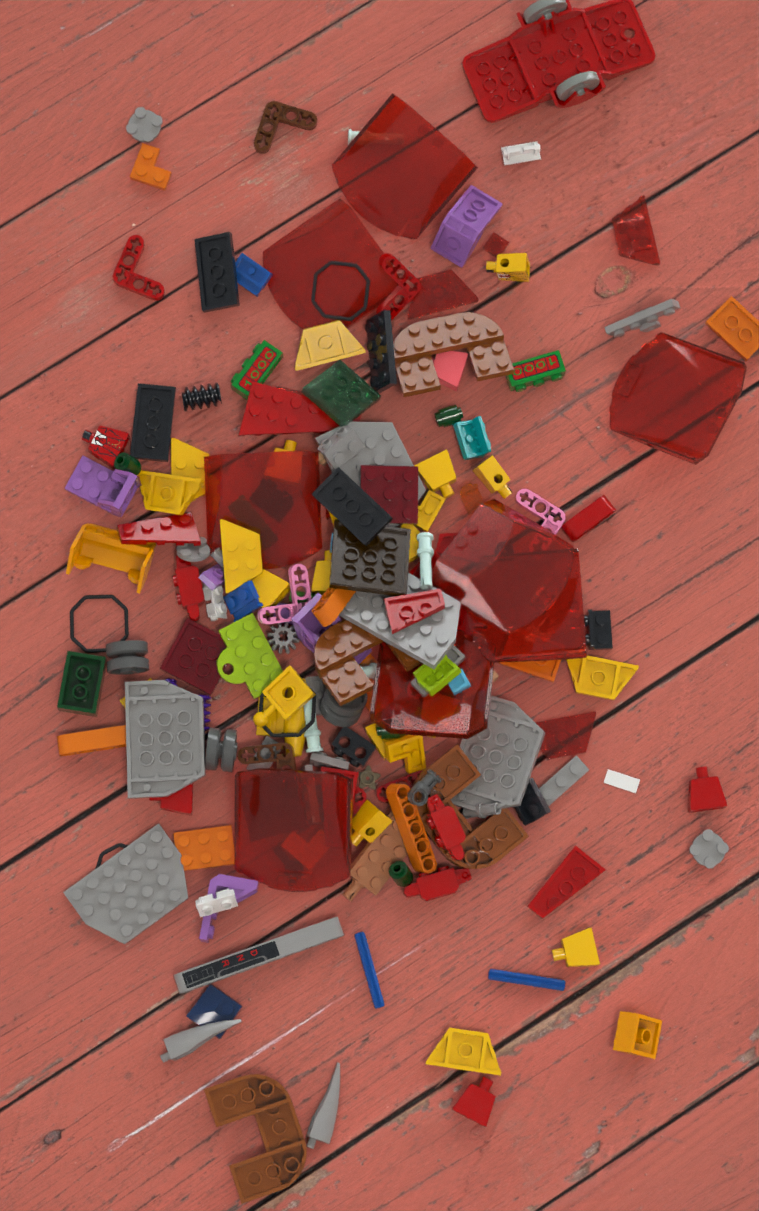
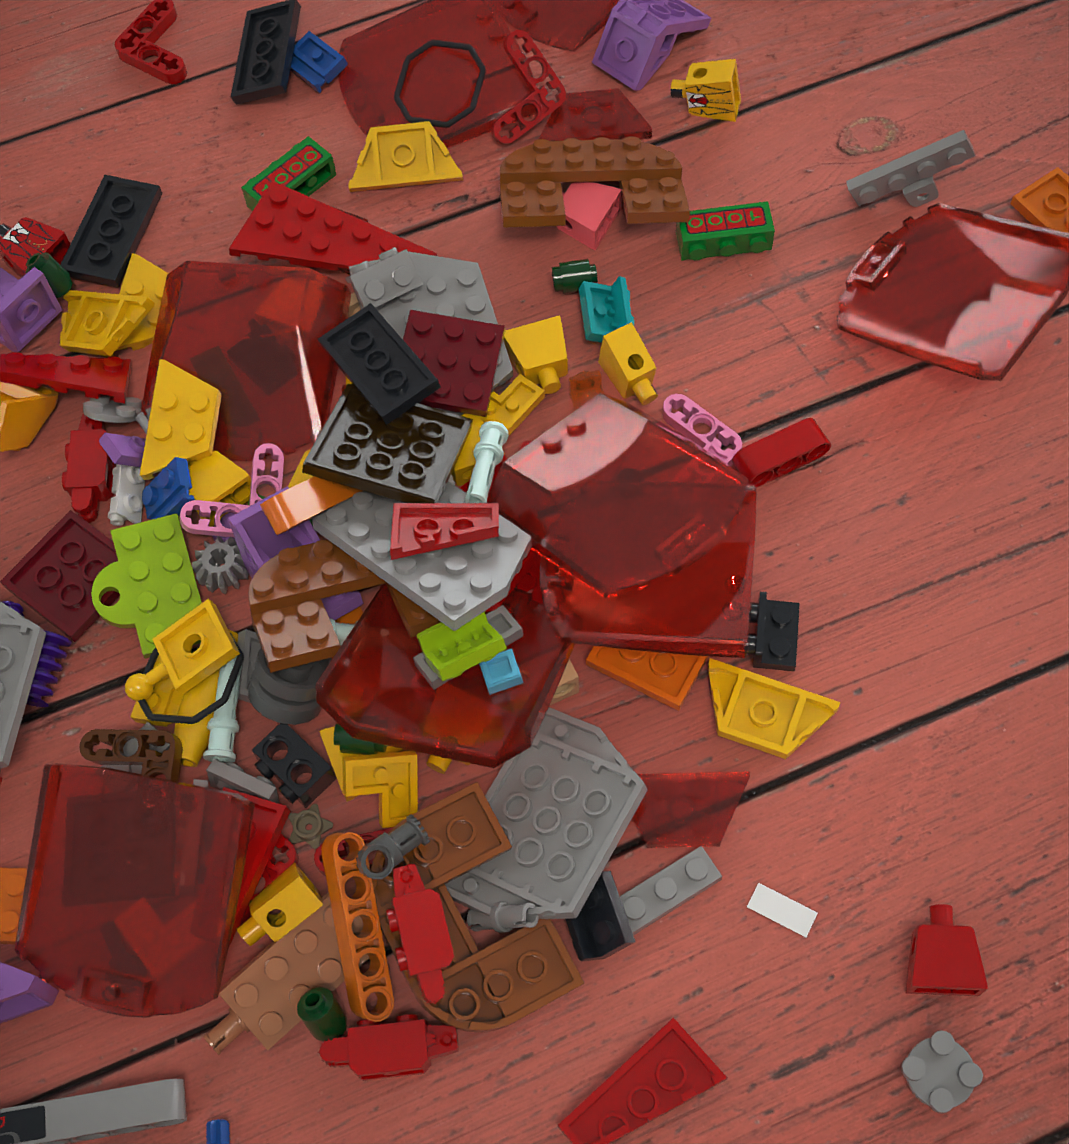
camera: 20 degrees right, 15 degrees down
(202, 396) = (192, 204): black piece -> none
(224, 750) = (51, 726): dark grey wheel -> none
(341, 393) = (408, 218): clear green plate -> none
(381, 351) = (483, 172): black plate -> none
(495, 245) = (681, 65): clear red plate -> none
(635, 233) = (911, 76): clear red wing -> none

